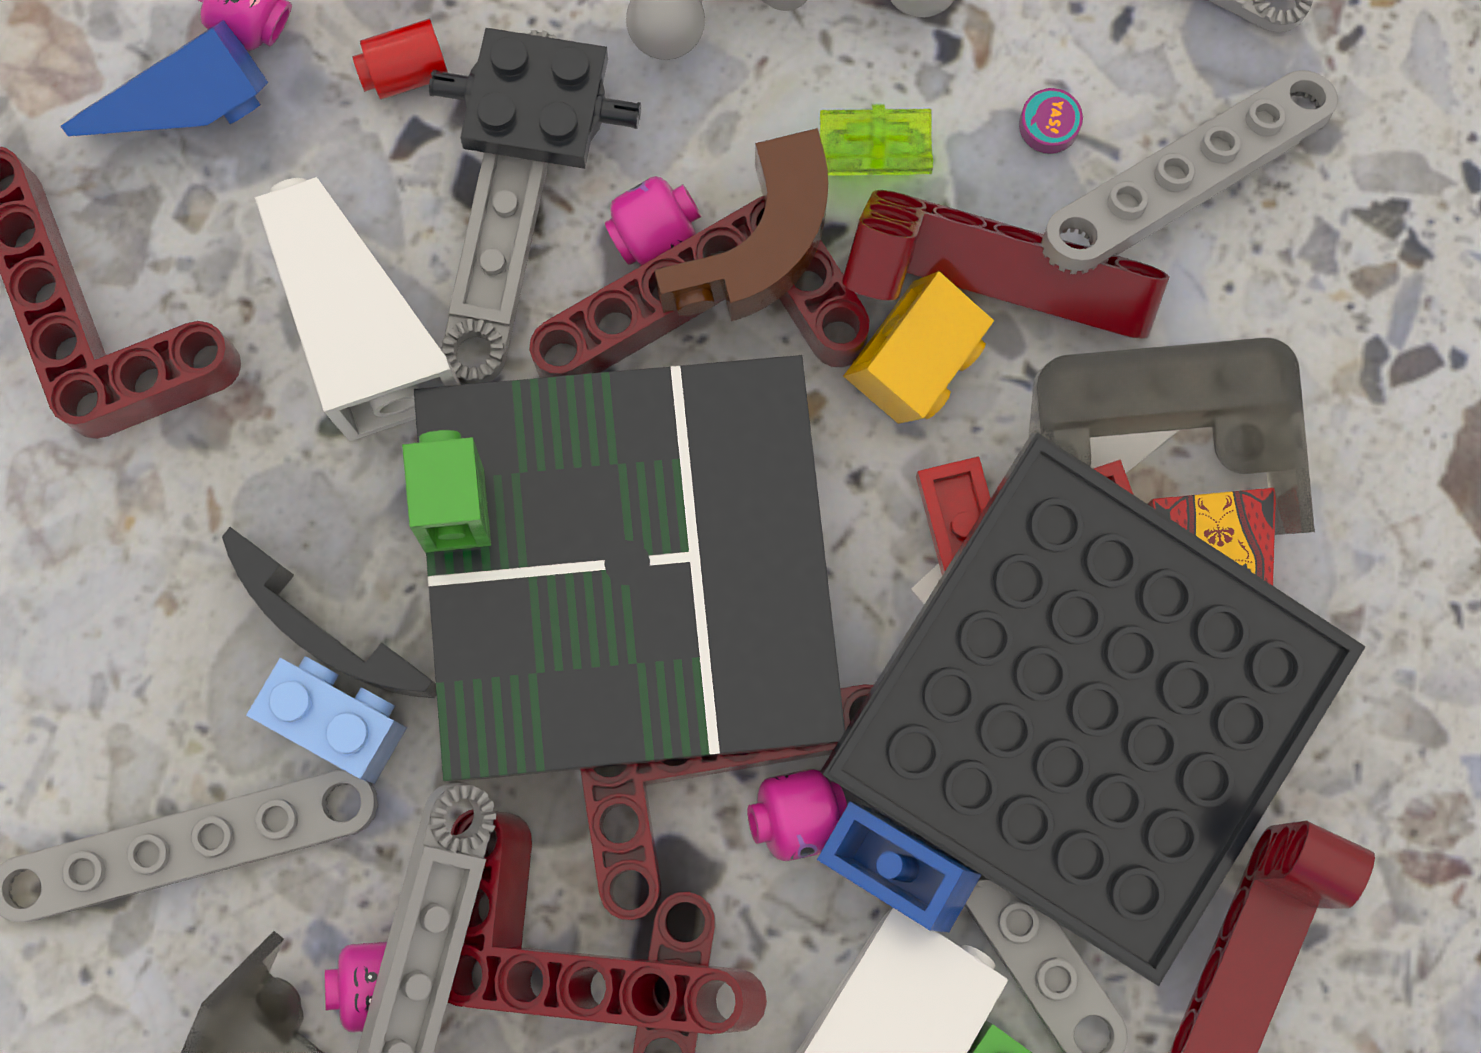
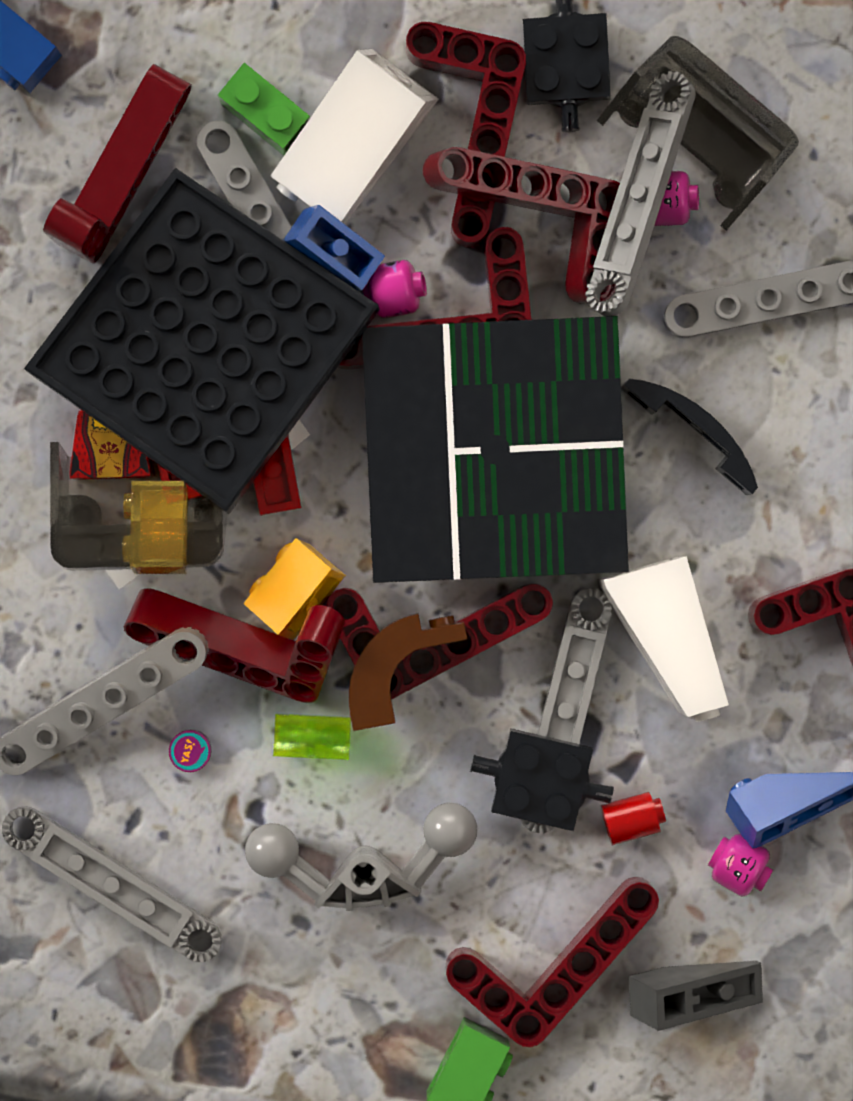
camera: 175 degrees left, 10 degrees up
(326, 720) = (693, 367): light blue brick -> none
(446, 492) = (606, 490): bright green brick -> none
(651, 220) = (466, 690): dark pink head -> none
(1142, 398) = (157, 527): none -> clear yellow brick

